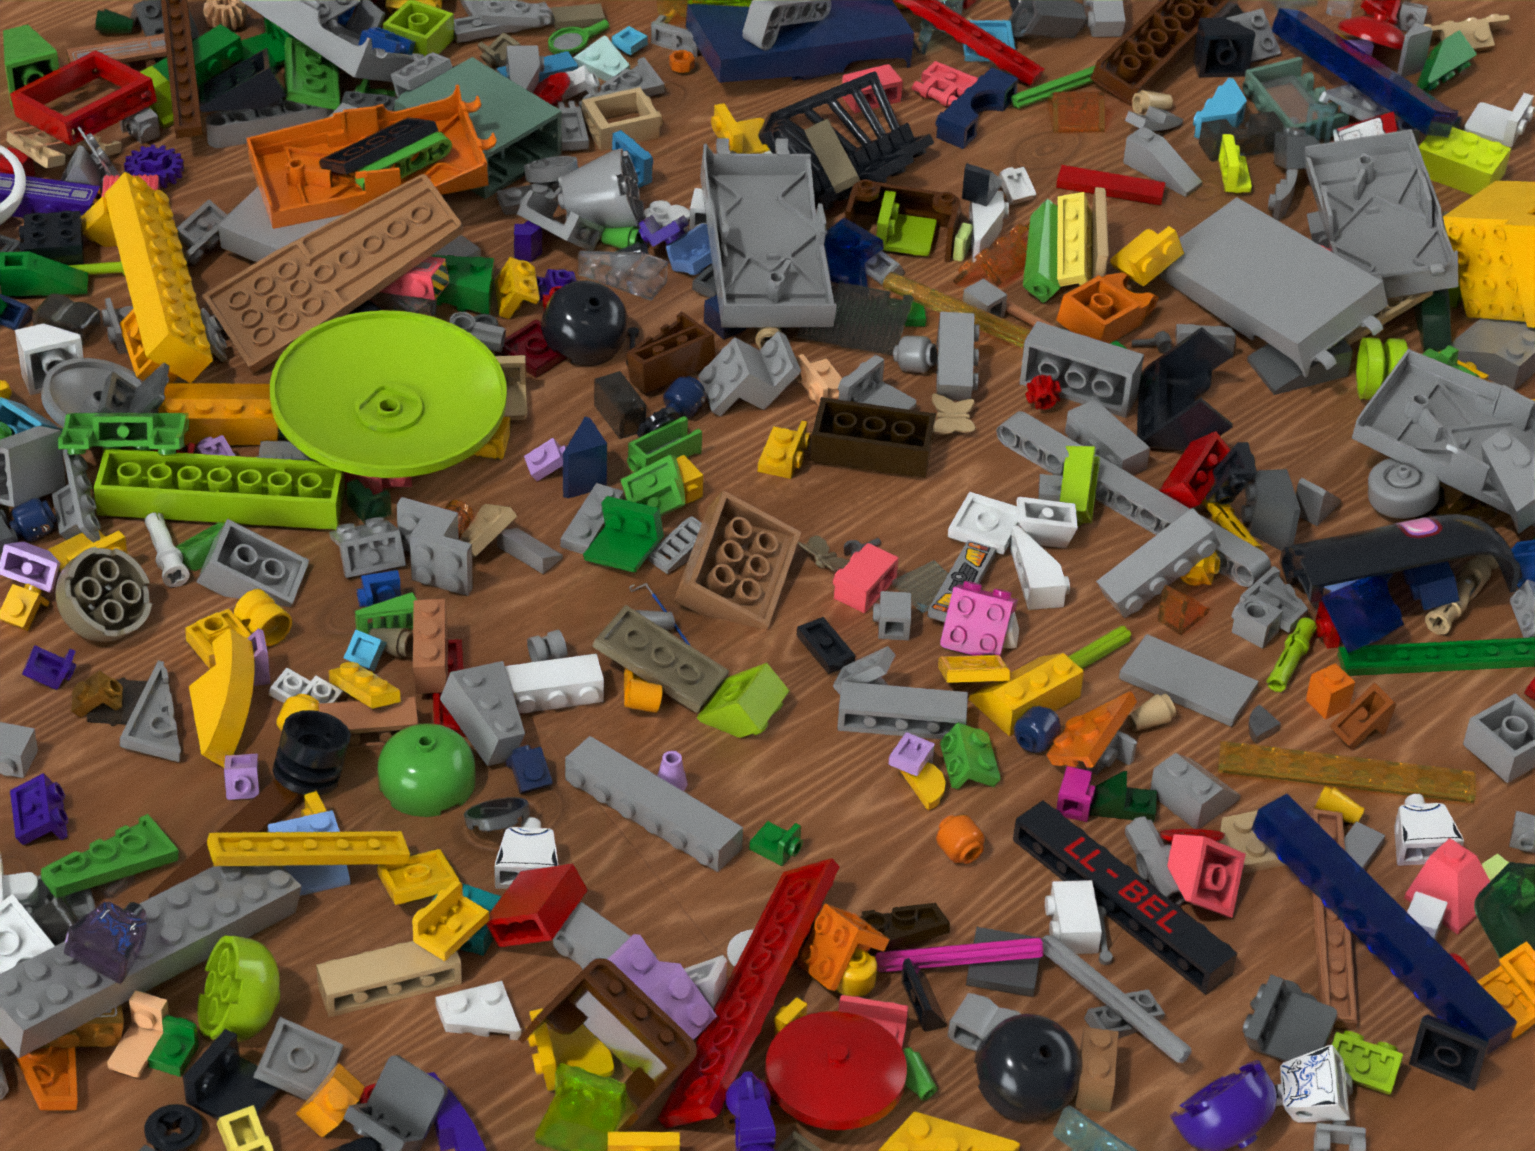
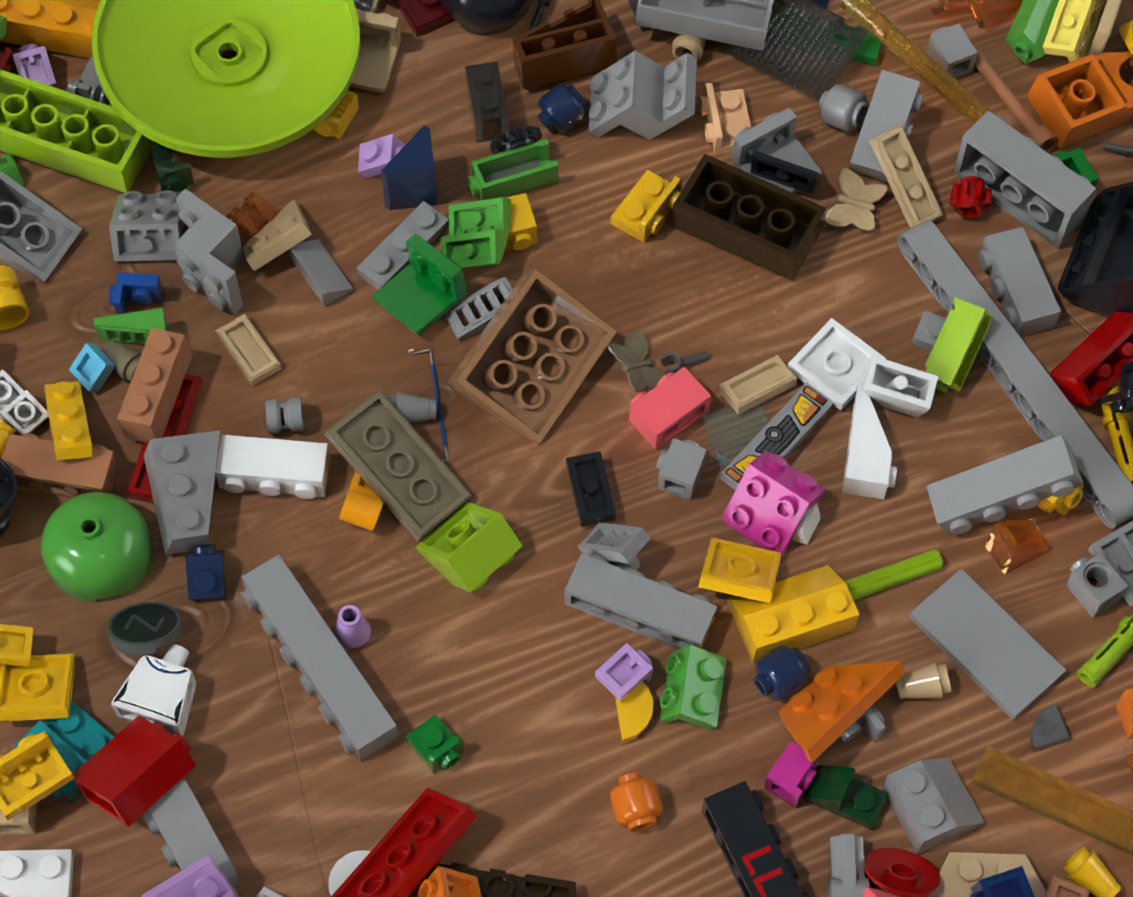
camera: 20 degrees right, 20 degrees up
(492, 614) = (248, 350): none -> tan tile
(889, 398) = (784, 172): none -> black slope
(929, 550) = (757, 384): none -> tan tile
(986, 384) = (905, 176): none -> tan tile

